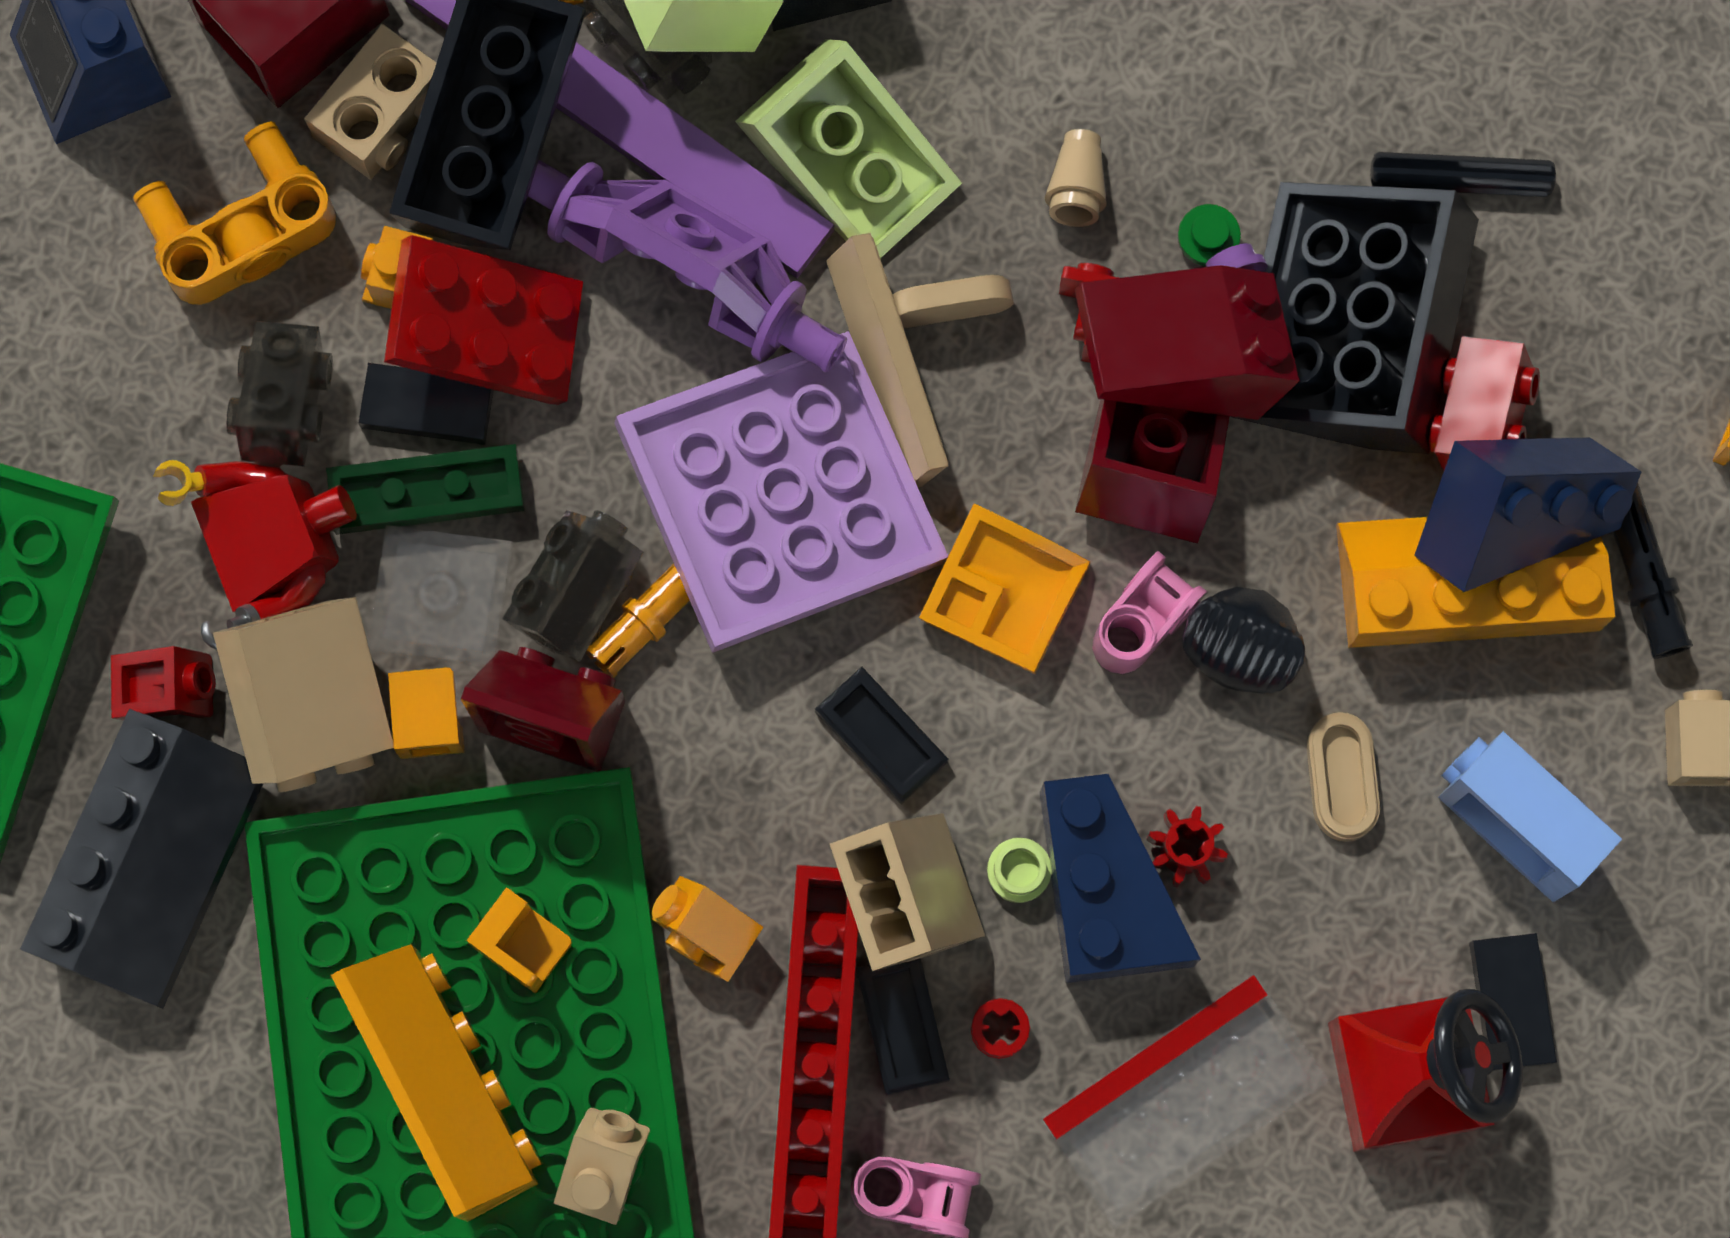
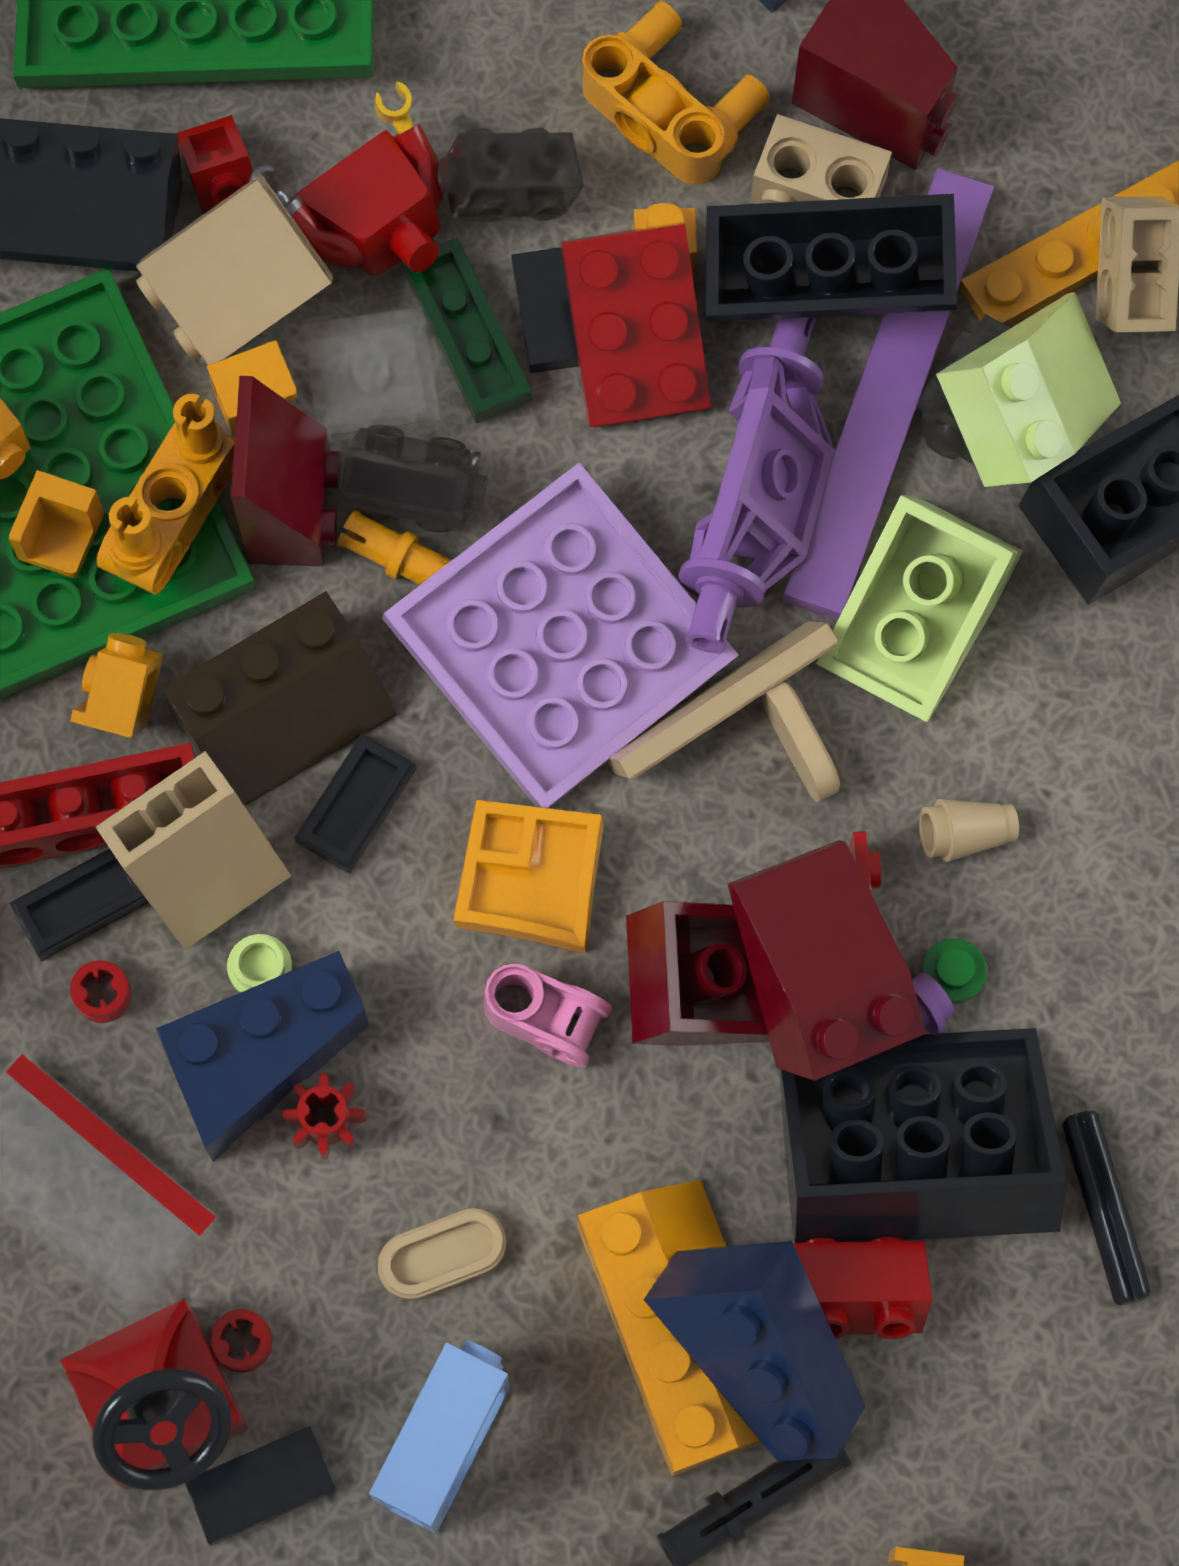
camera: 75 degrees right, 5 degrees down
(504, 791) = (188, 466): none -> light orange piece
(762, 775) = (280, 699): none -> dark brown slope
(1244, 641) = (545, 1109): black hair -> none
(1369, 964) = (259, 1331): none -> red bush

